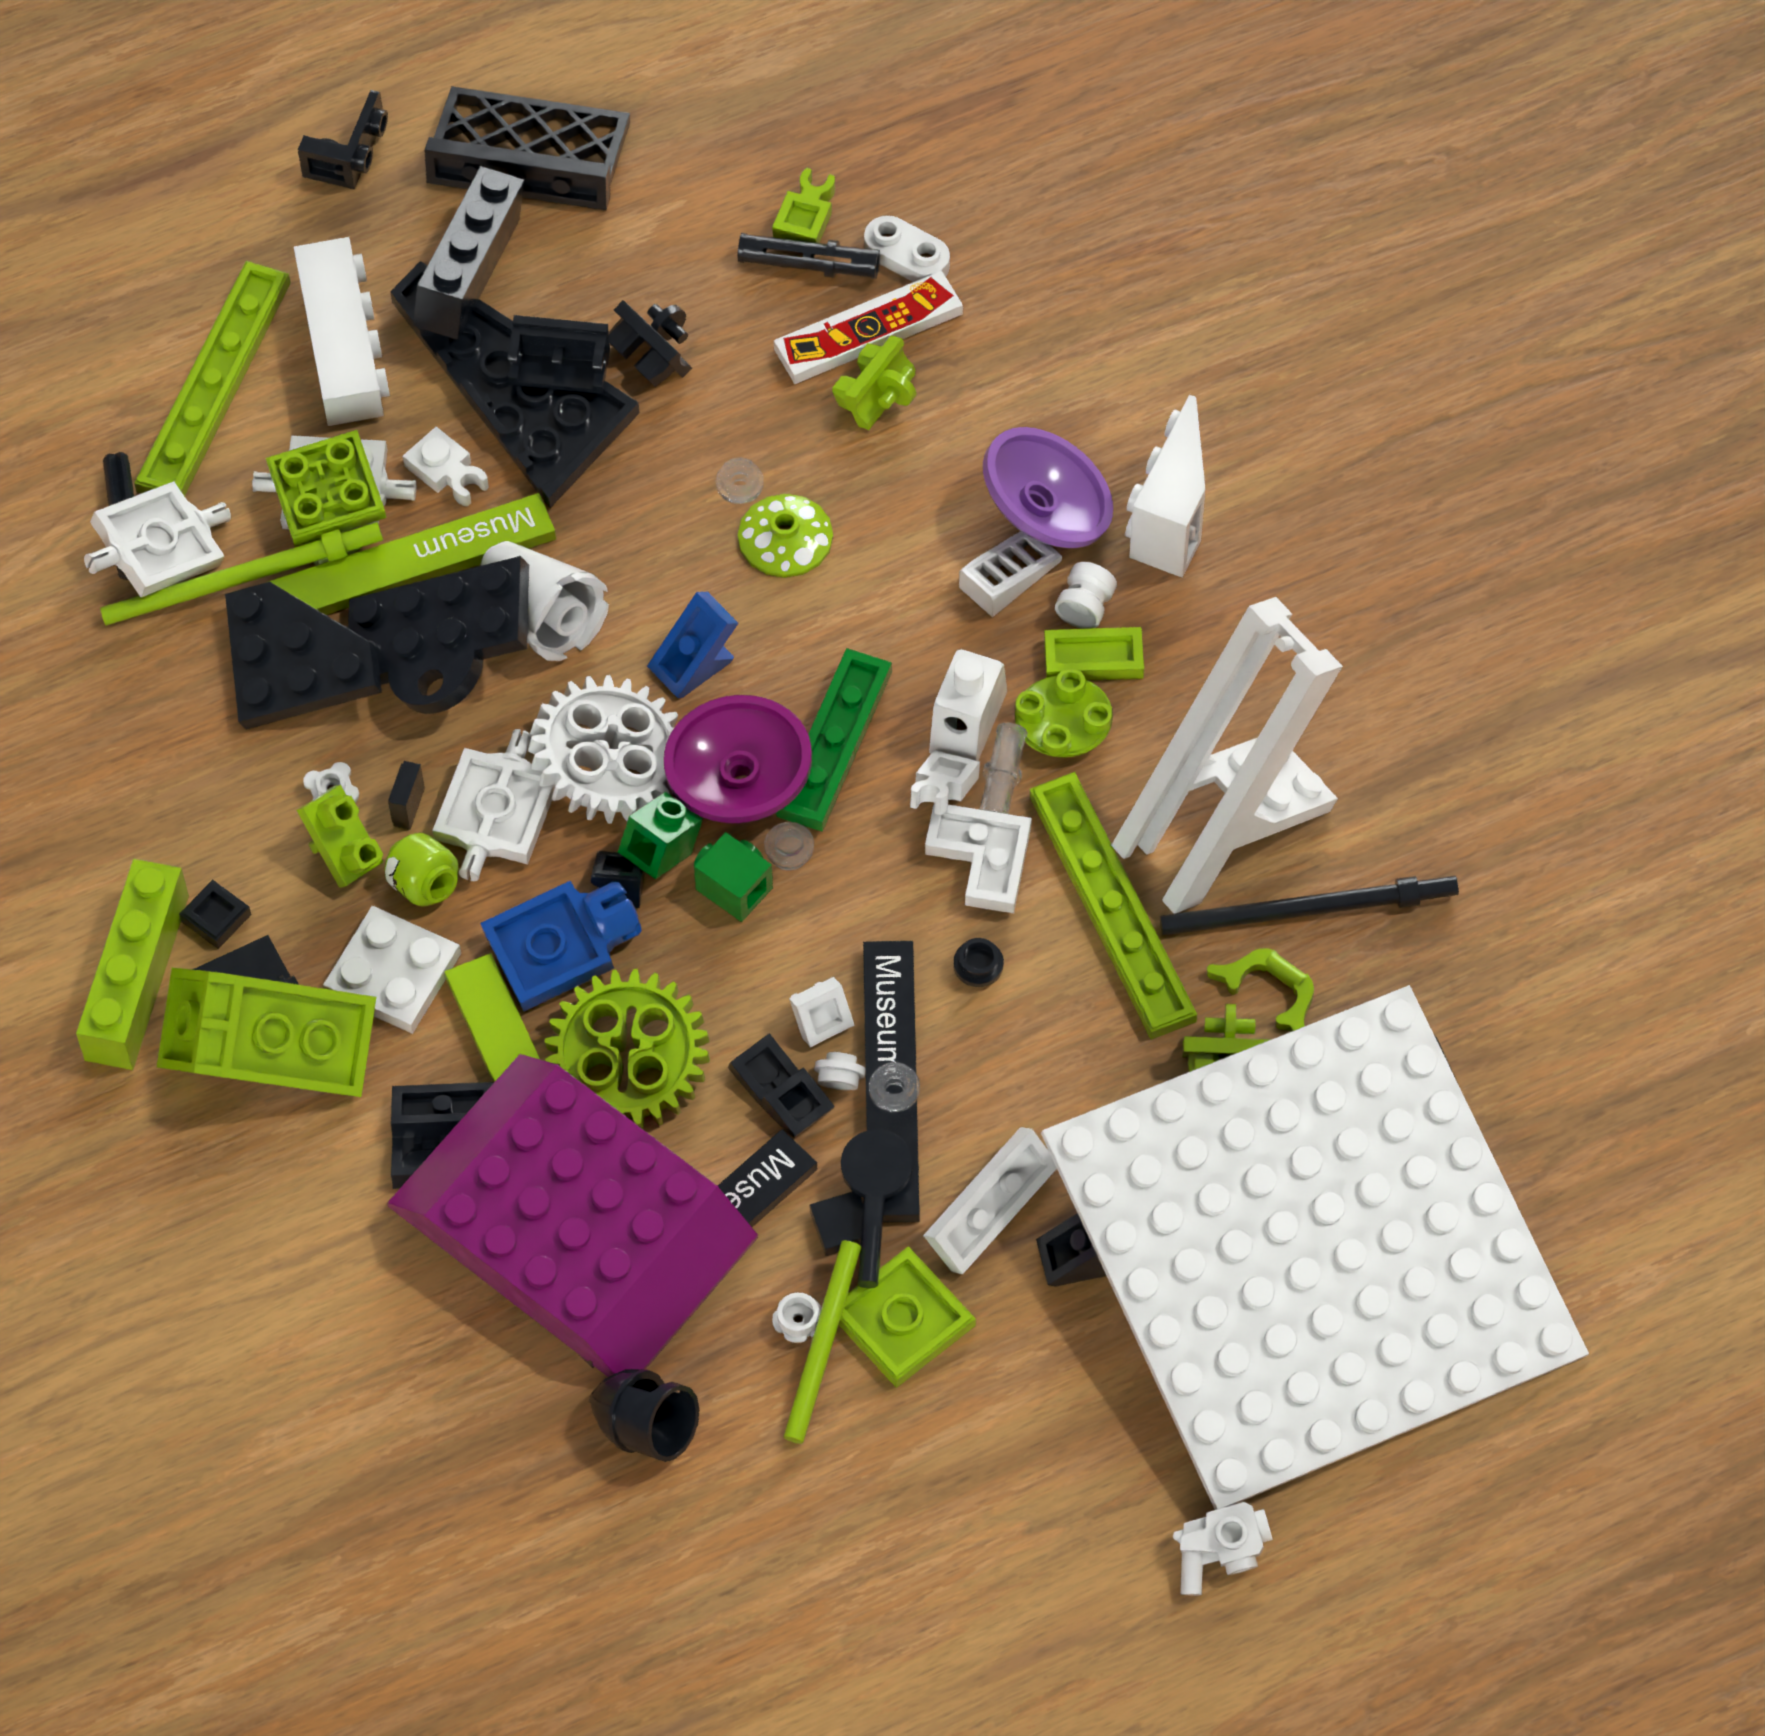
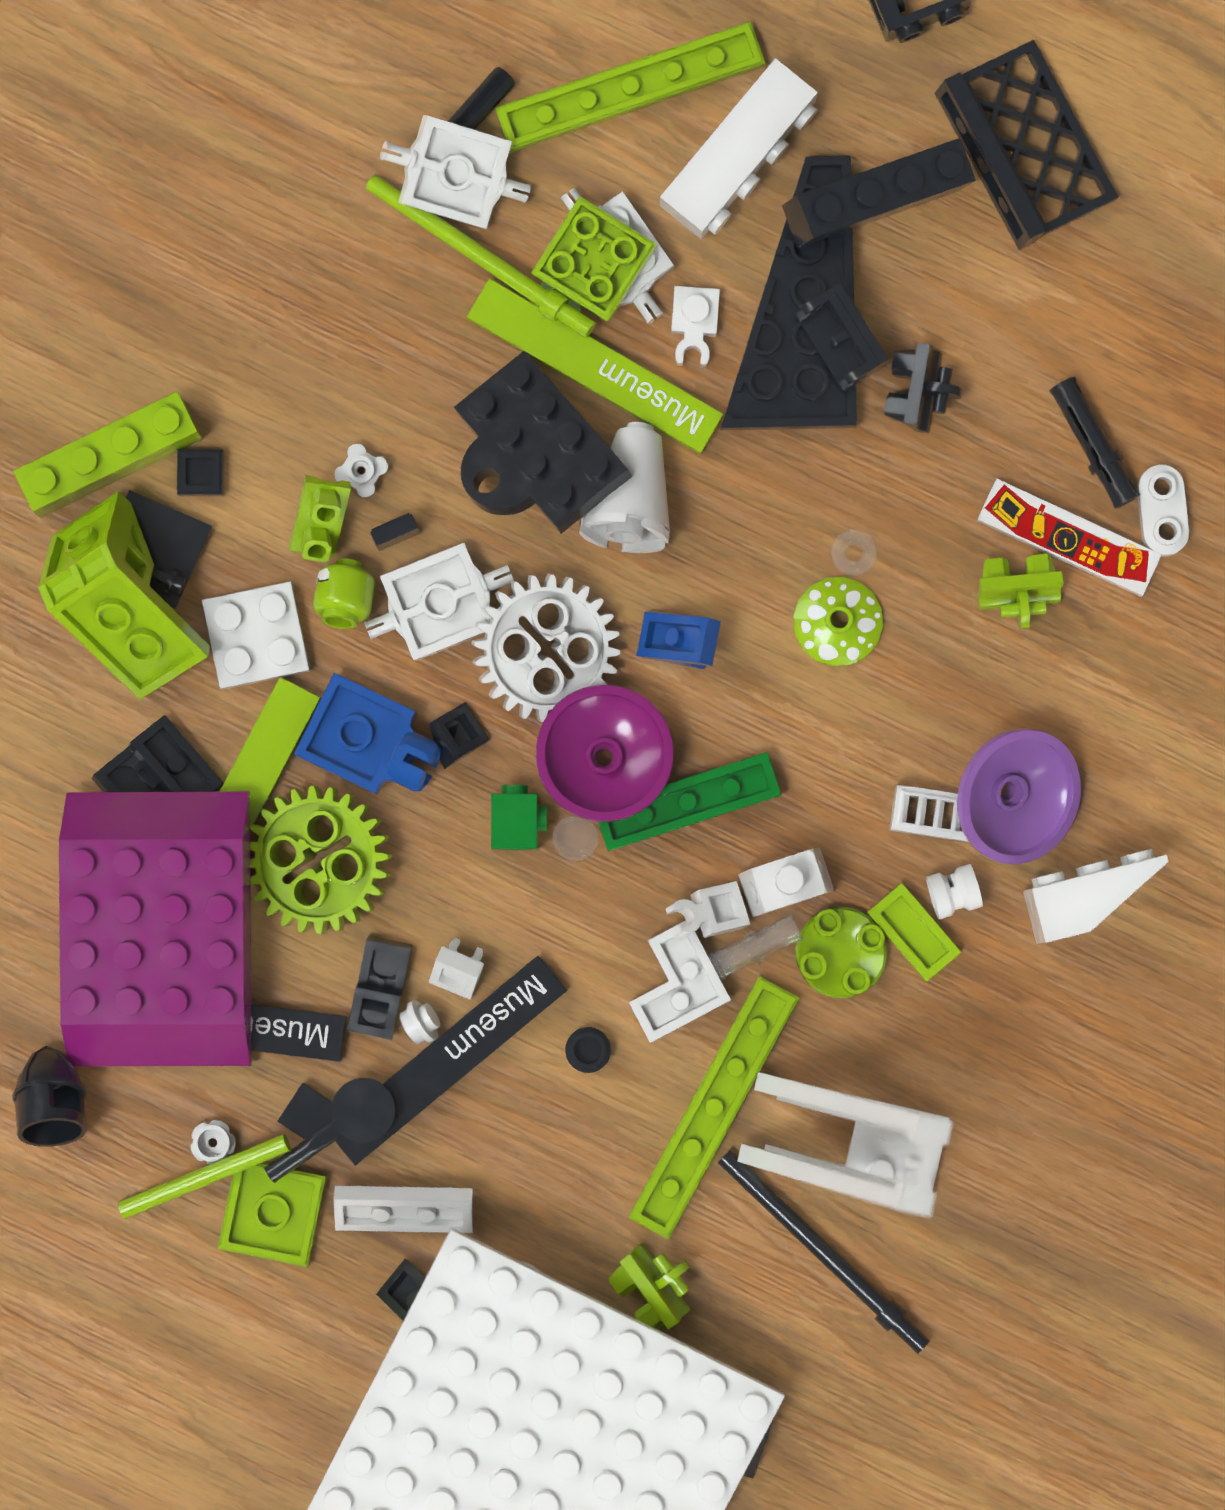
camera: 55 degrees right, 25 degrees up
(293, 657) = (440, 353): black plate -> none
(660, 835) = (502, 744): green brick -> none
(805, 214) = (1129, 410): lime plate -> none
(894, 1074) = (419, 1079): clear plate -> none
(1269, 960) = (755, 1274): lime helmet -> none

